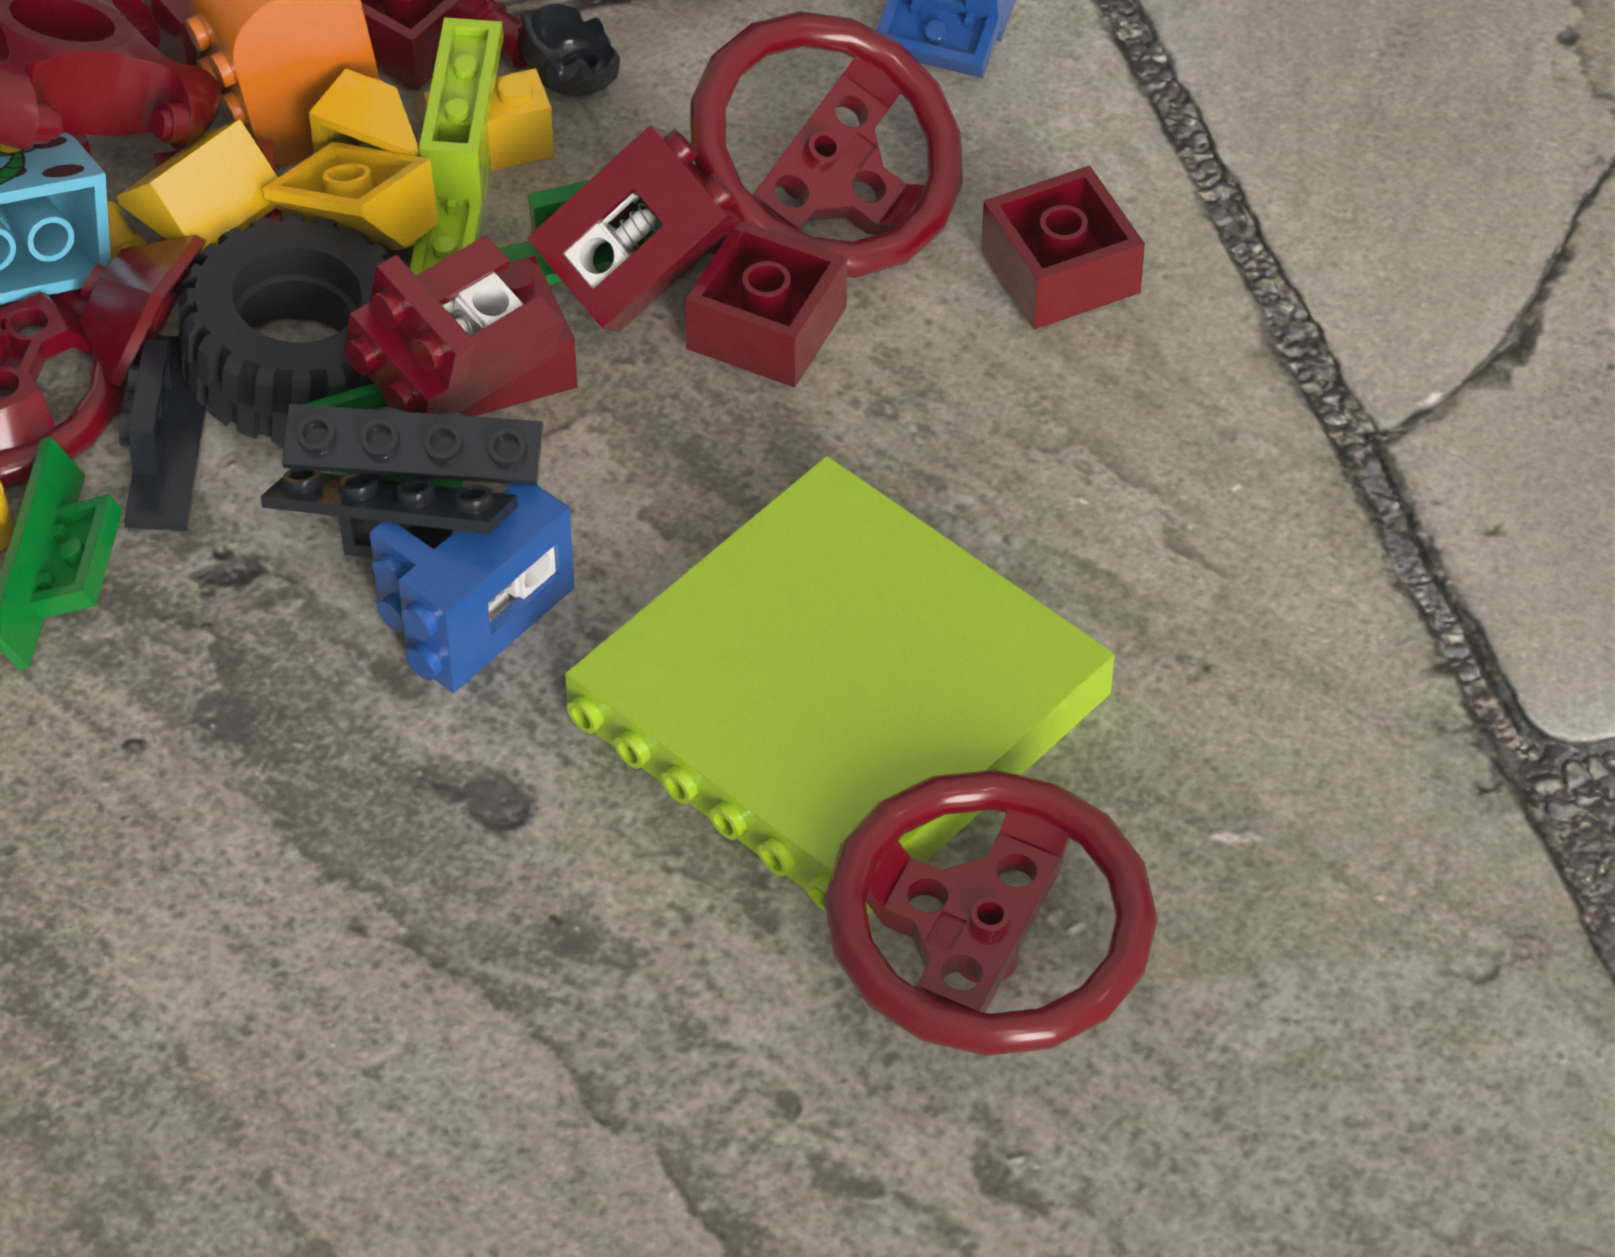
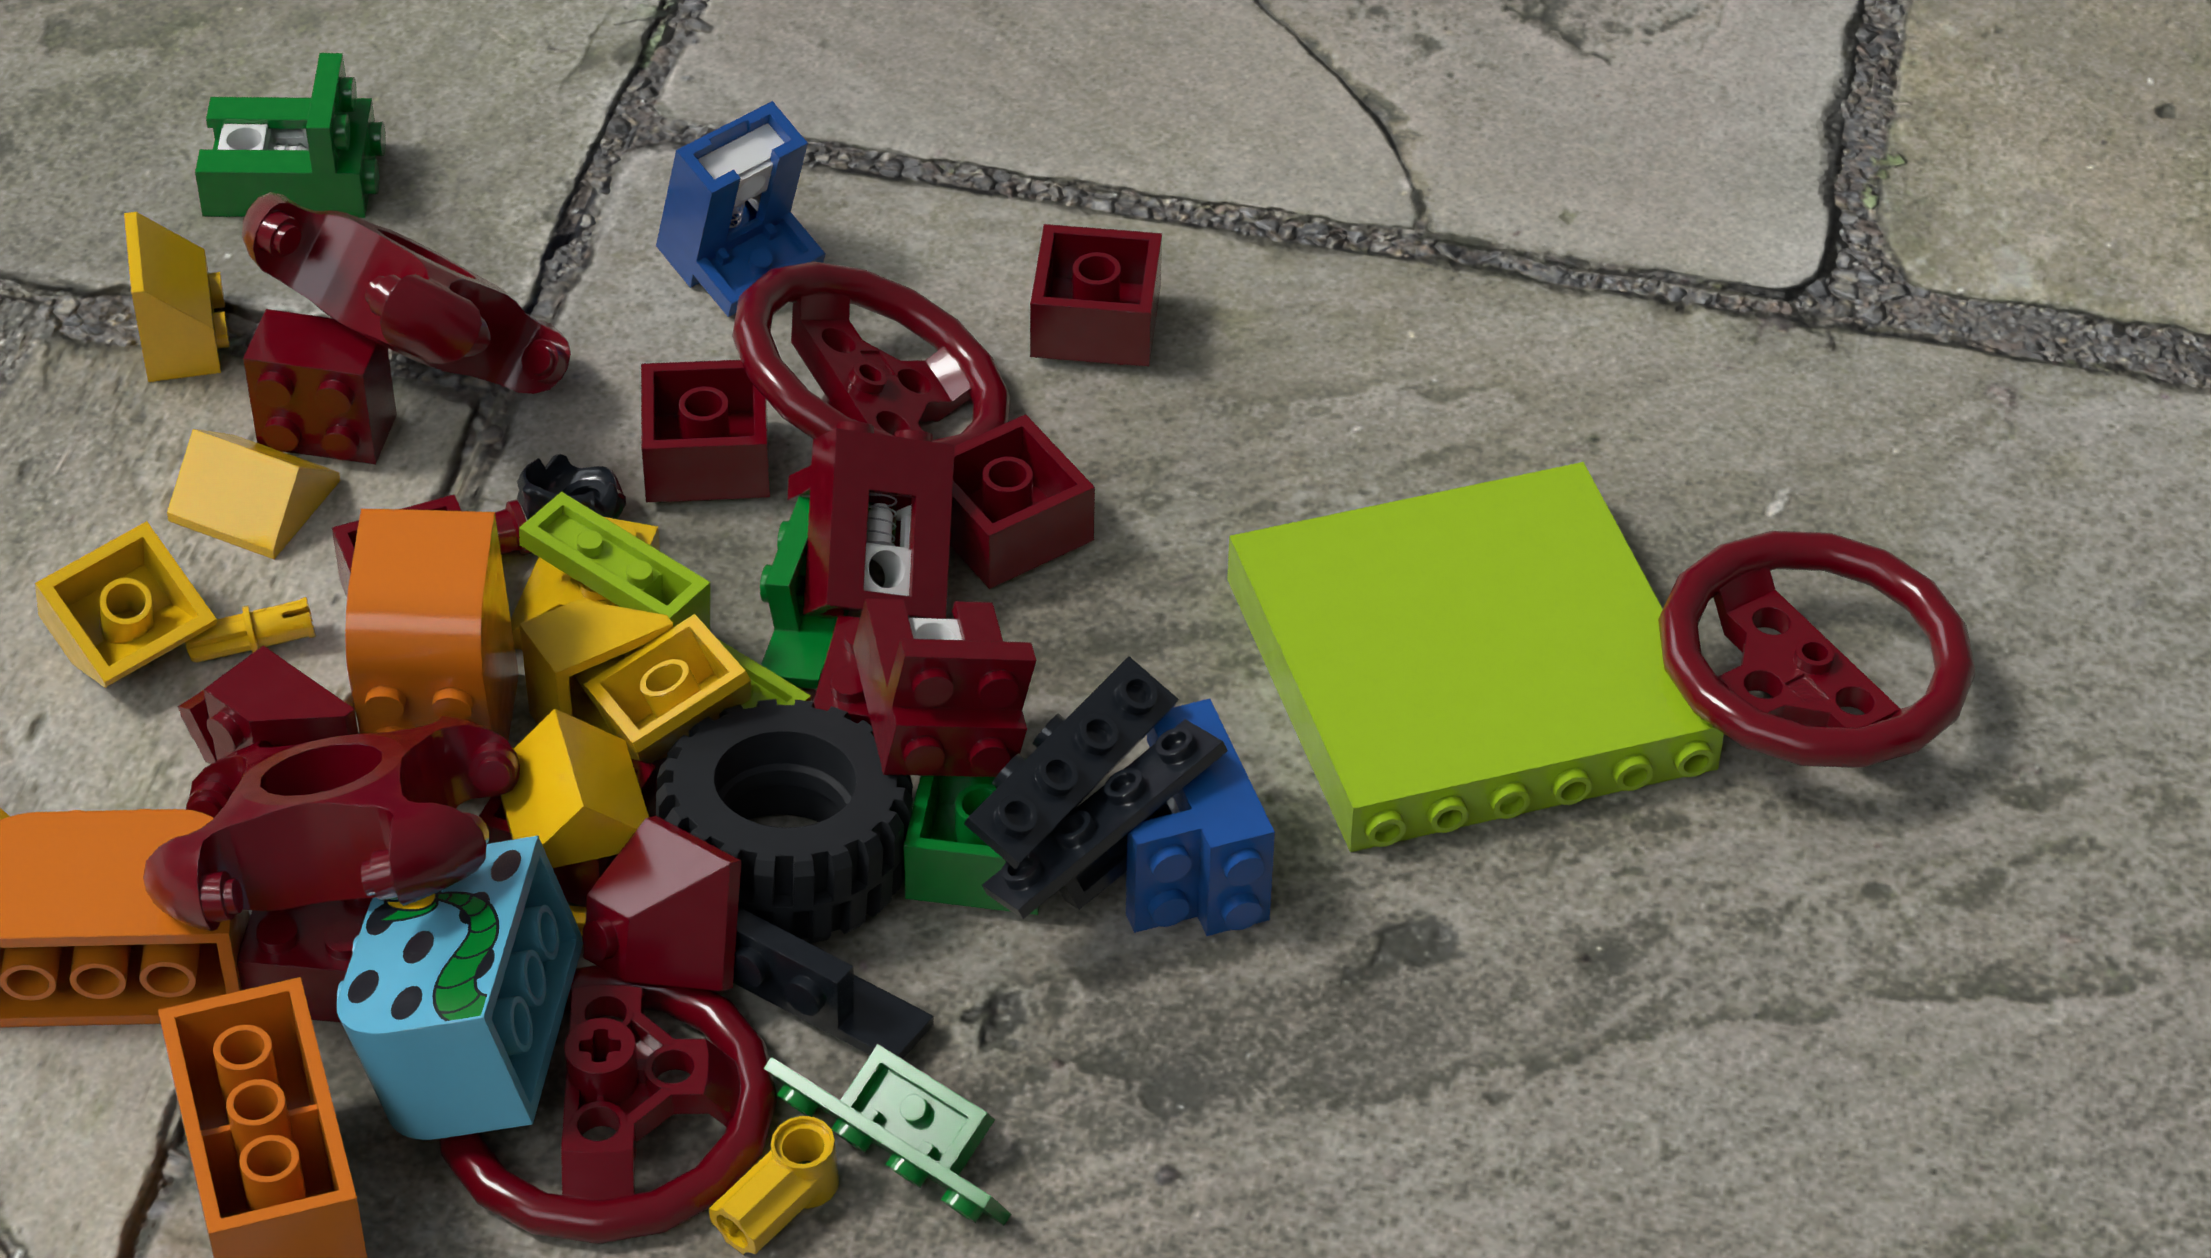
camera: 60 degrees left, 5 degrees down
(665, 72) = (703, 432): none -> dark red brick

